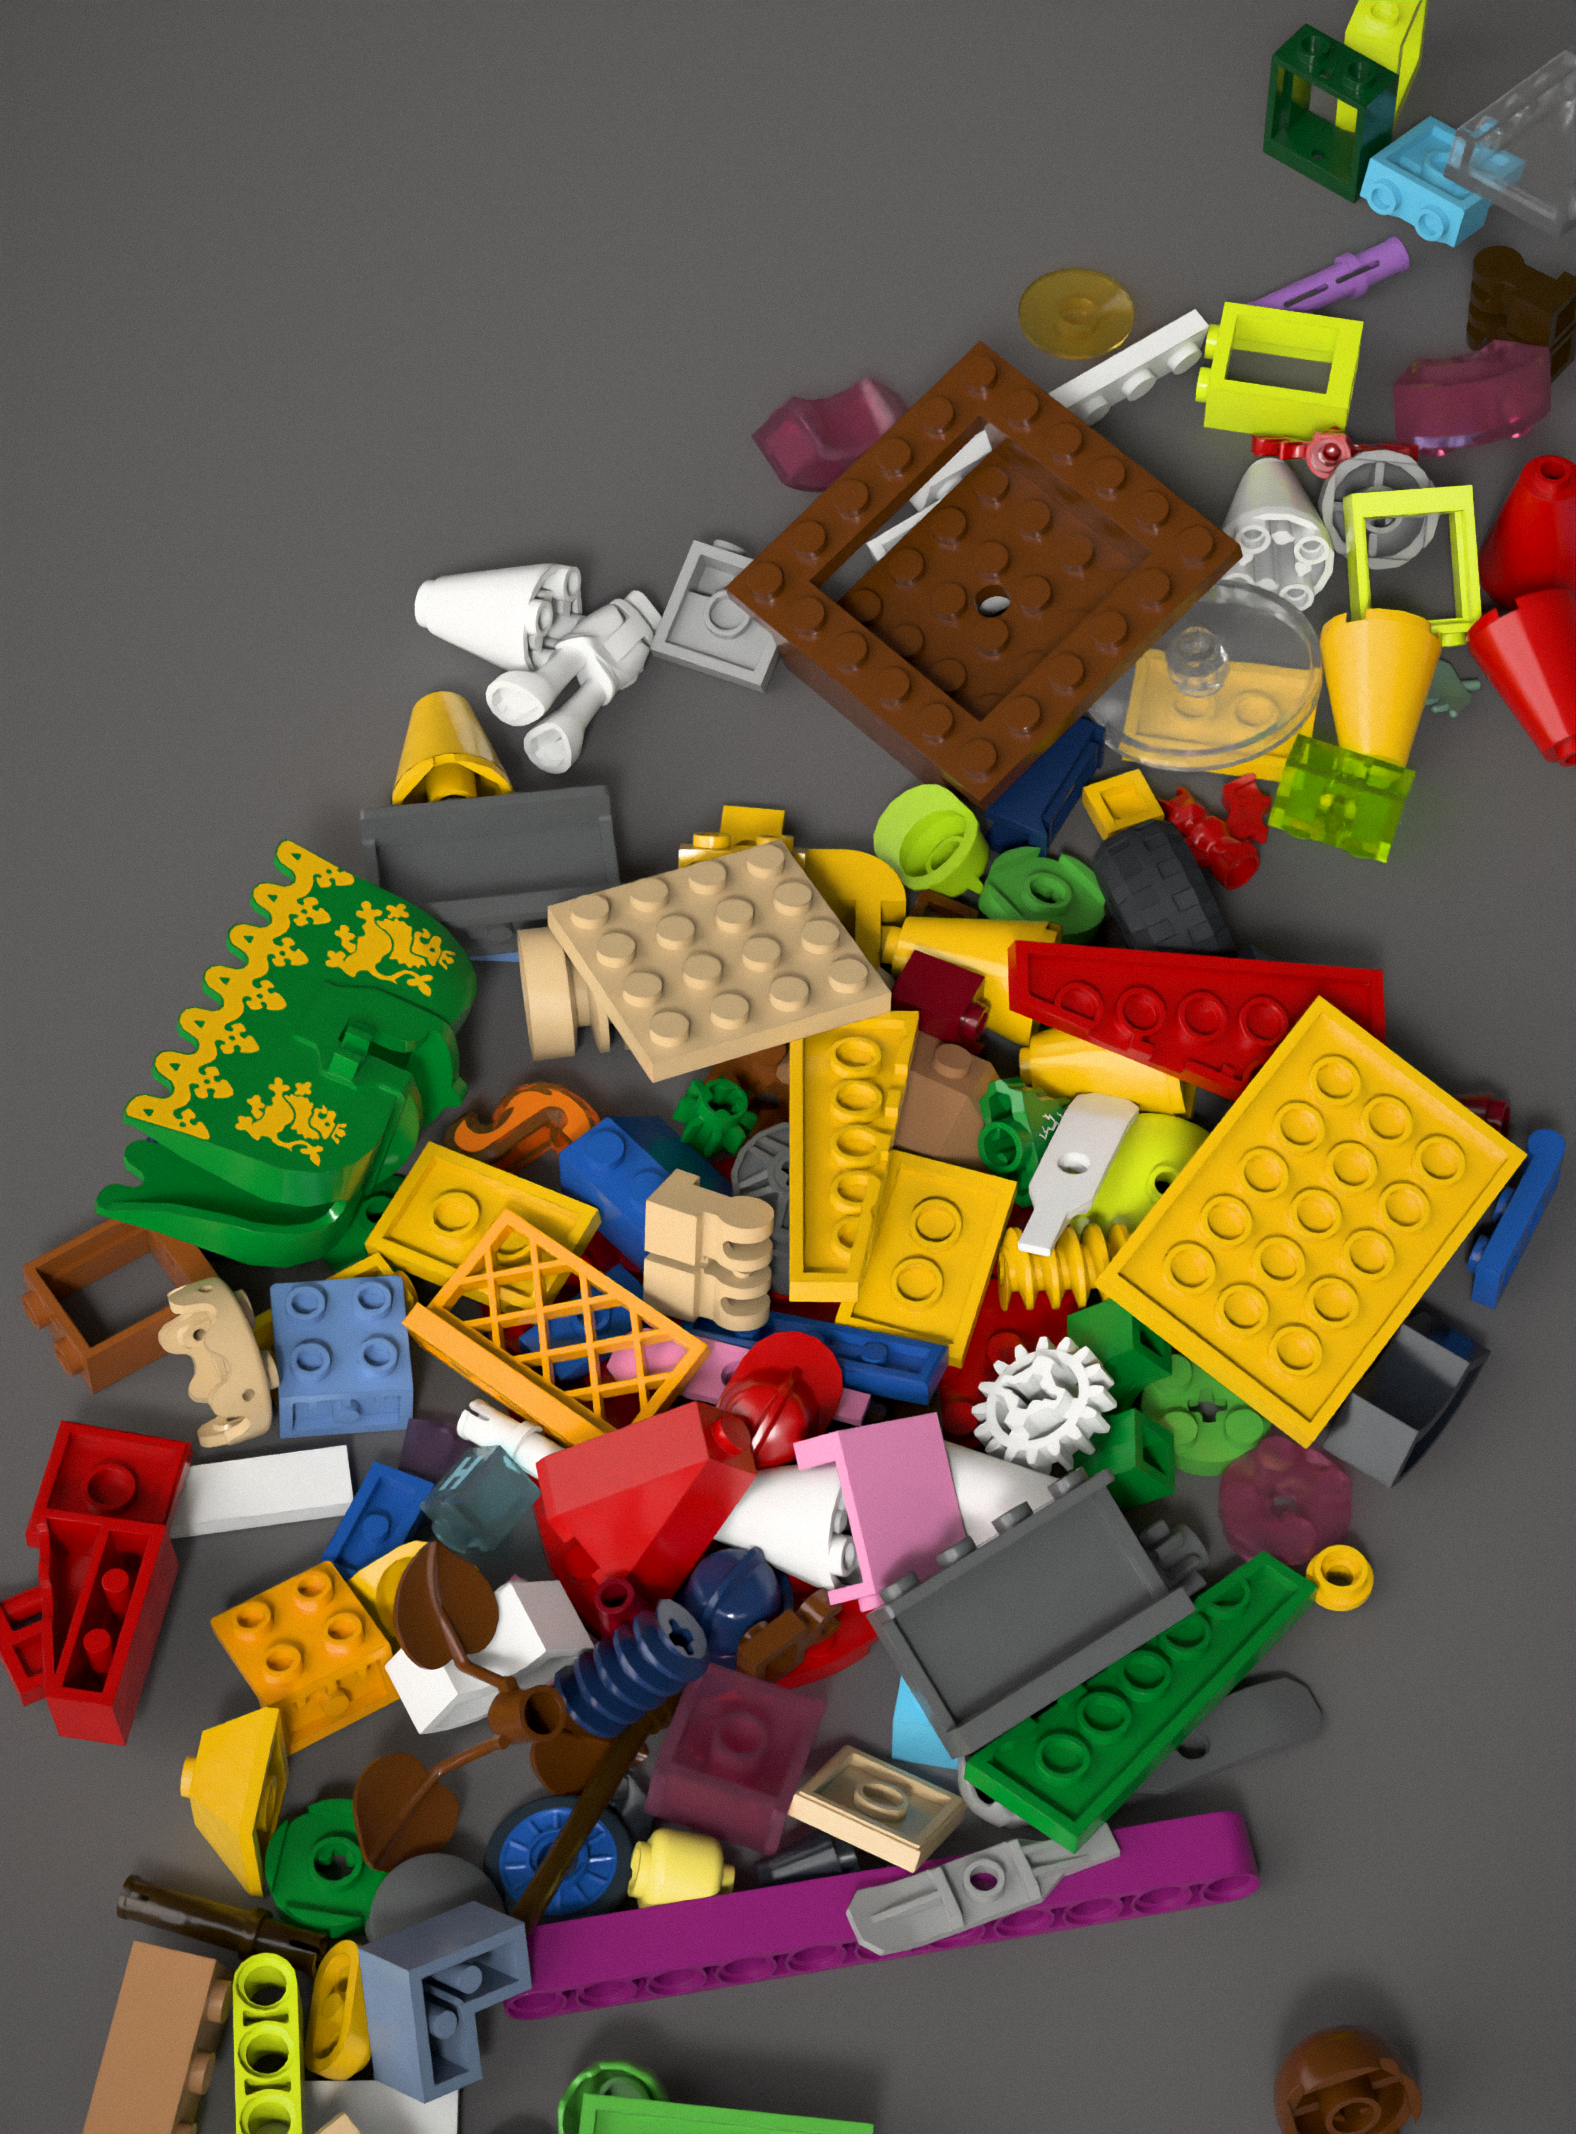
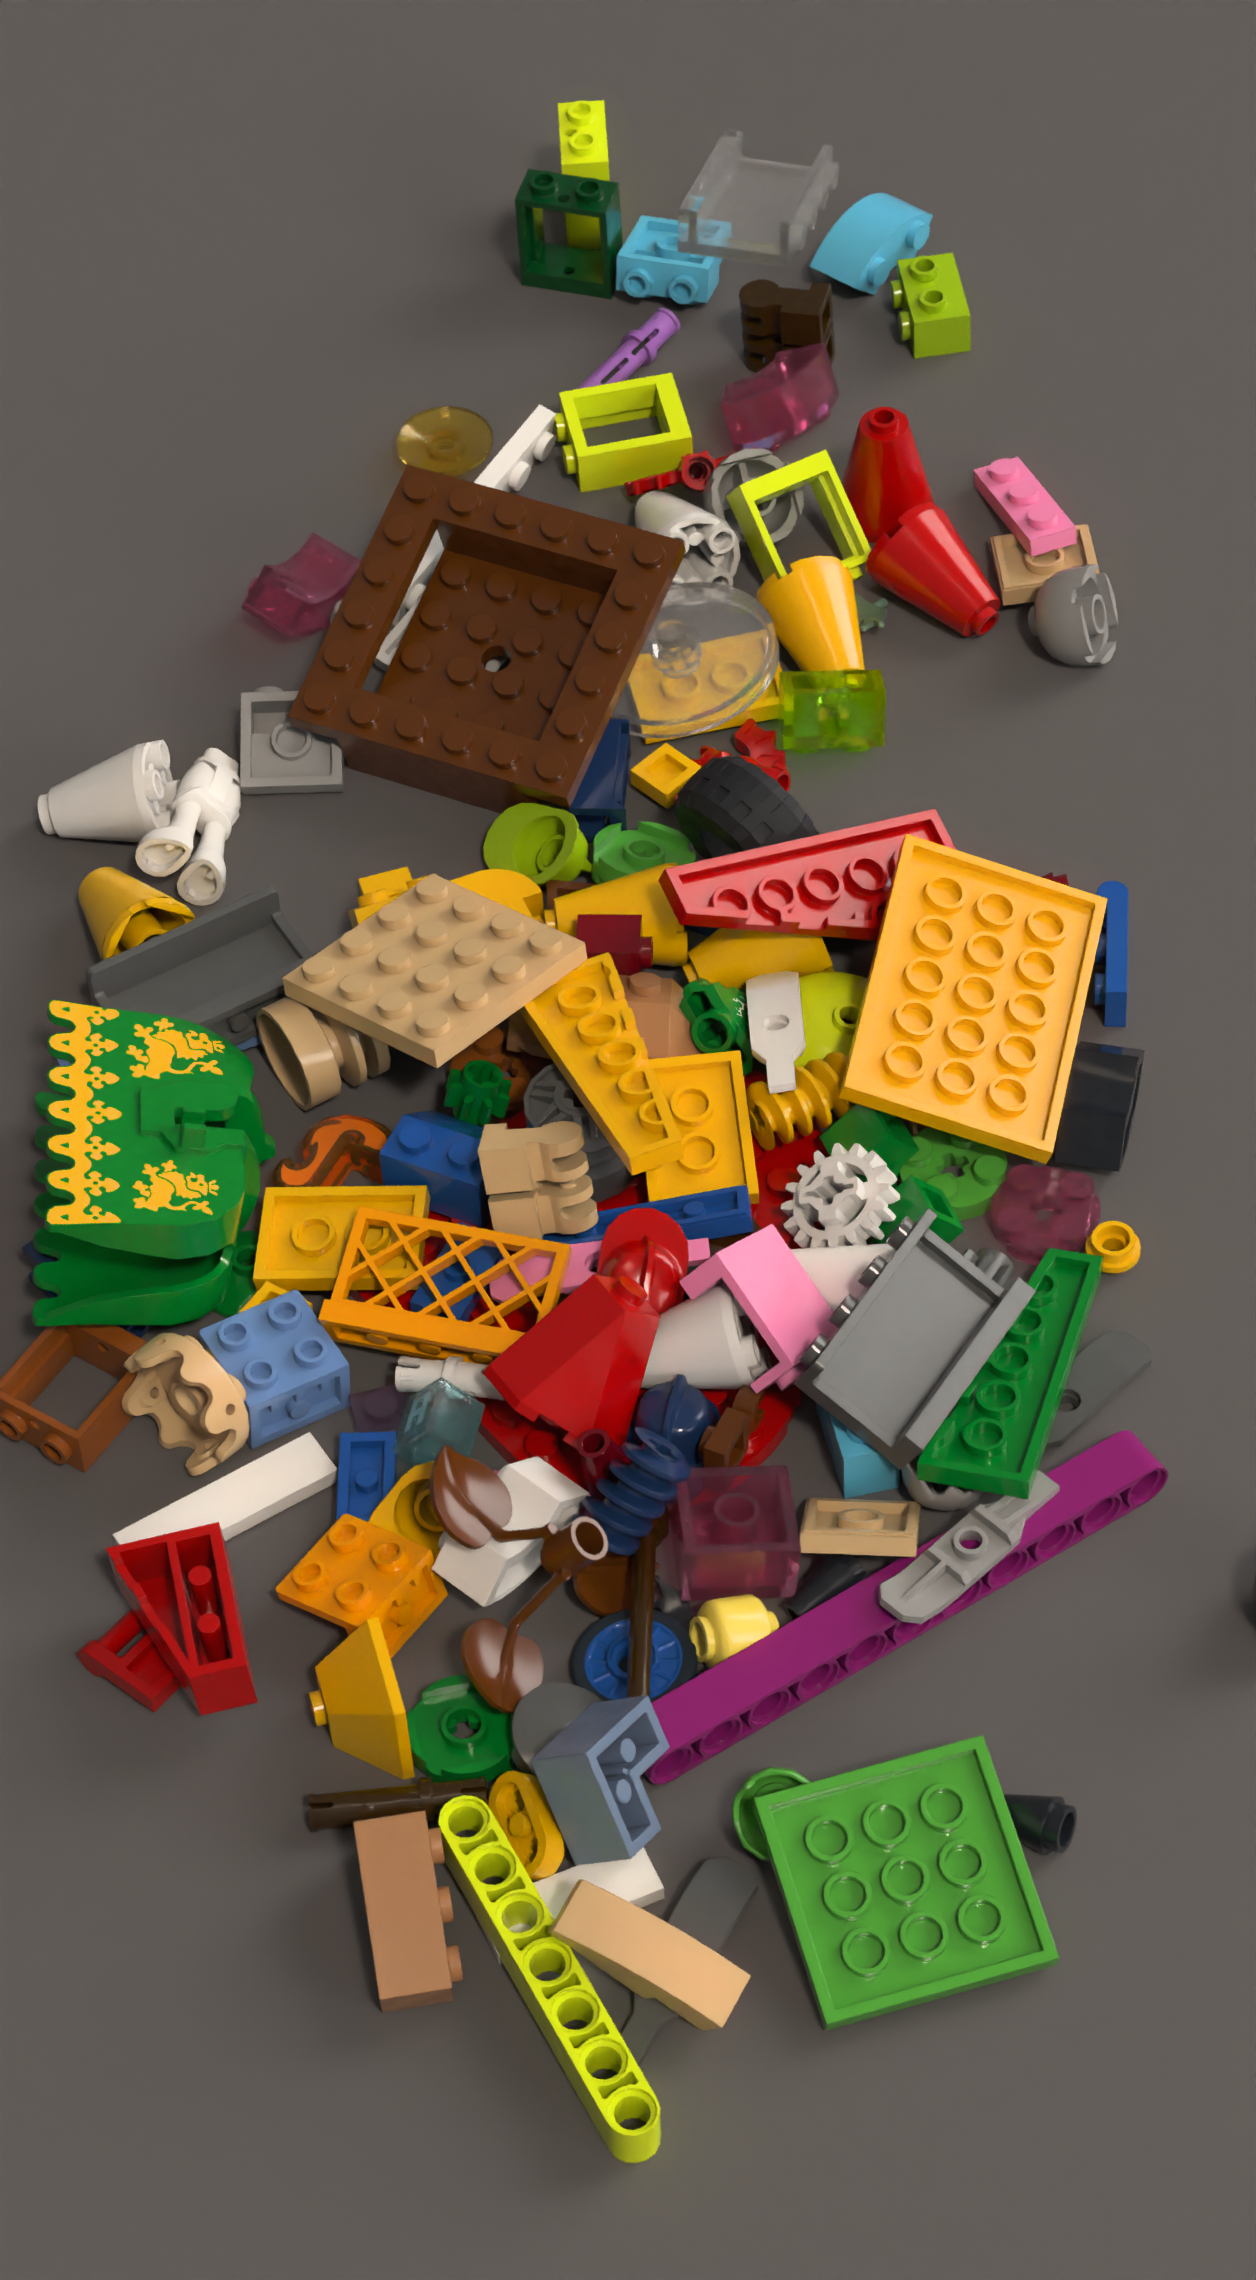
camera: 20 degrees left, 5 degrees down
(112, 1475) = (137, 1512): red plate -> none

